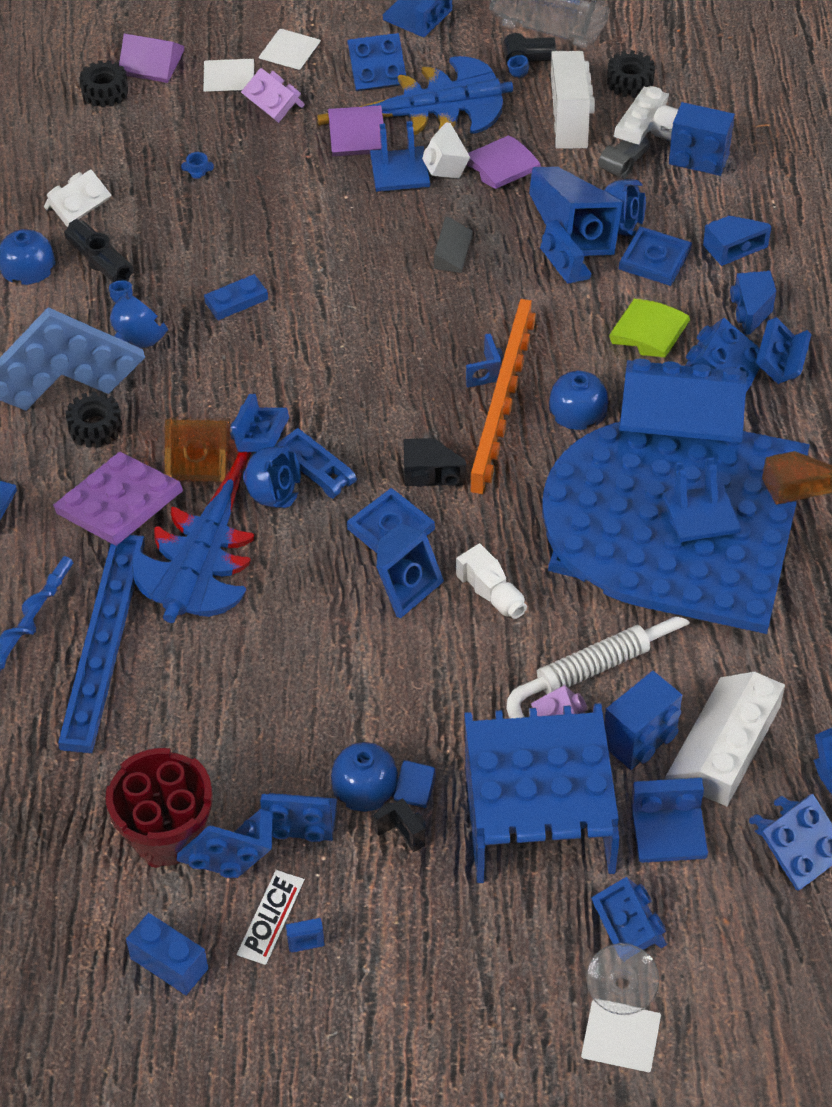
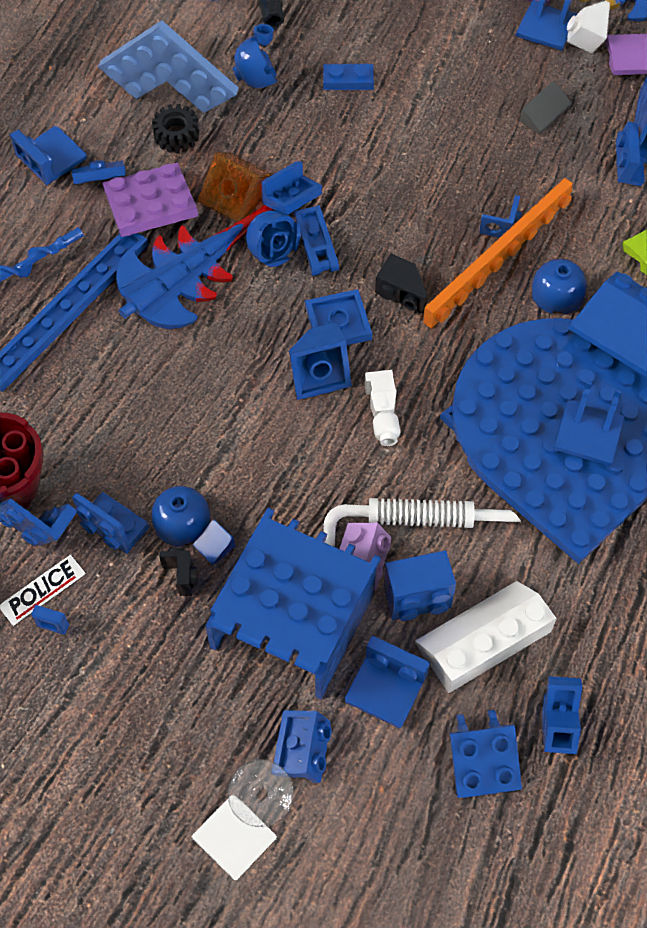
camera: 30 degrees right, 10 degrees up
(42, 495) = (98, 171): none -> blue plate

